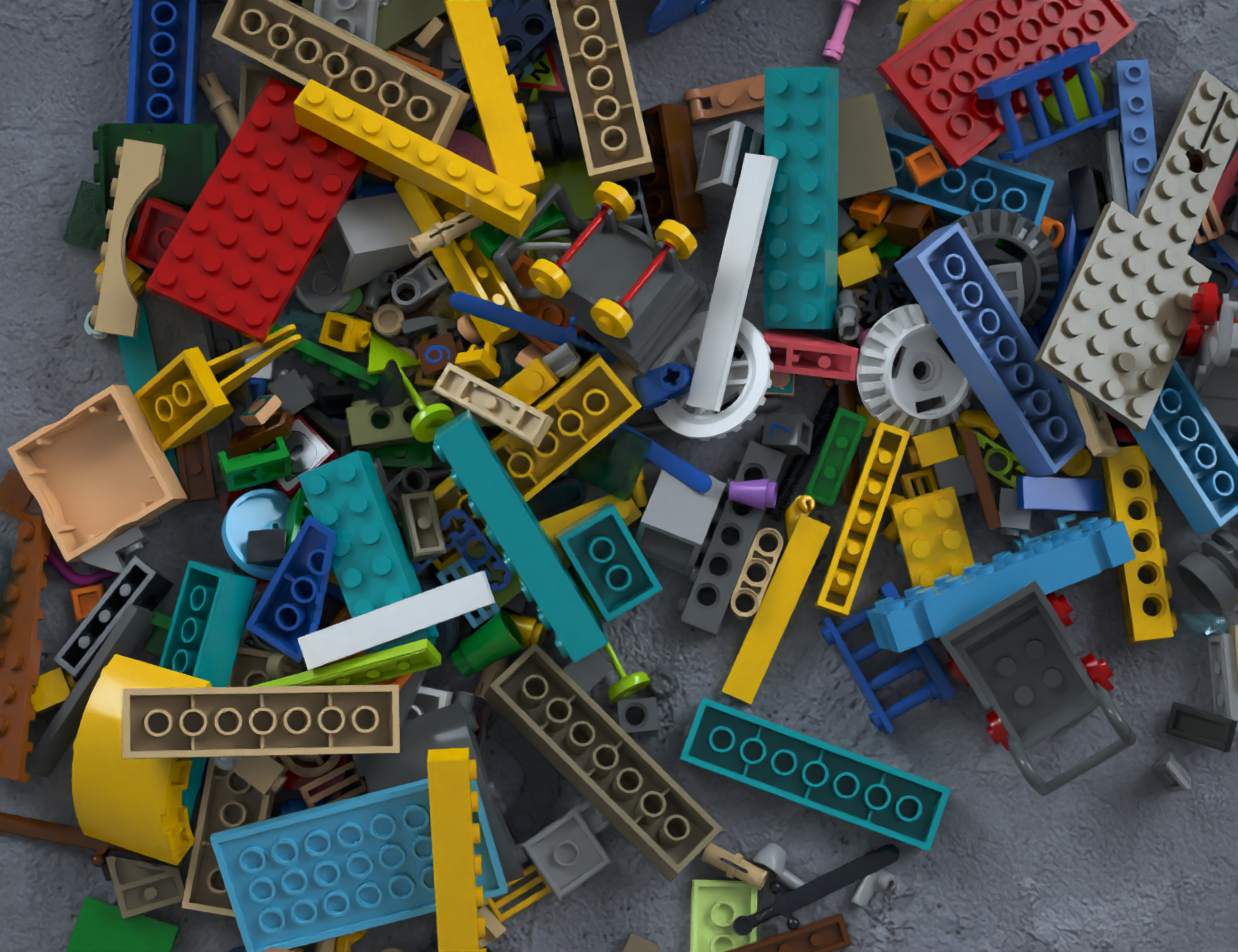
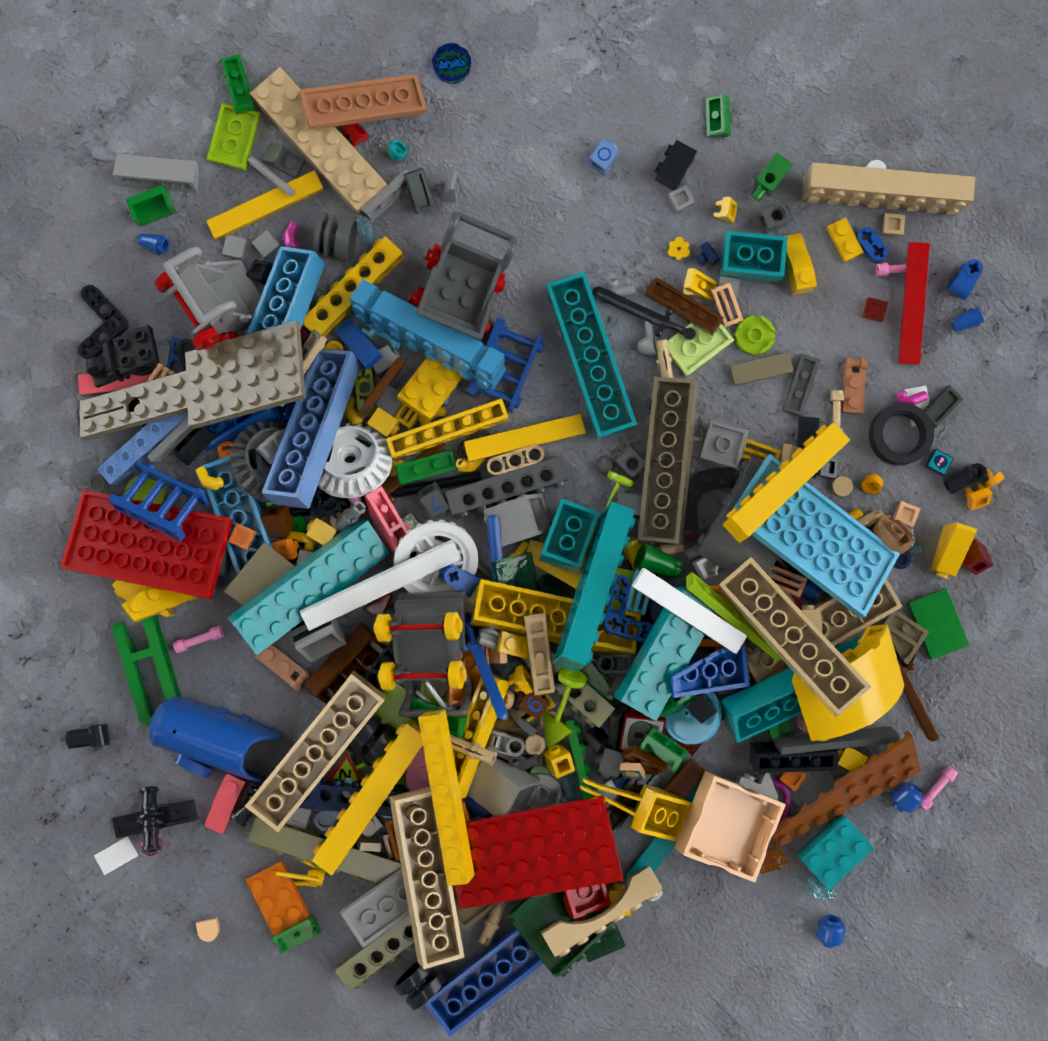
camera: 130 degrees left, 5 degrees up
(390, 386) = (570, 715): black slope -> none
(421, 526) = (628, 640): dark tan slope -> none
(707, 268) = (379, 605): none -> panel
(755, 493) = (478, 491): medium lavender cone -> none
(1026, 176) = (208, 481): none -> yellow arm
(1131, 48) = (96, 483): none -> dark grey piece

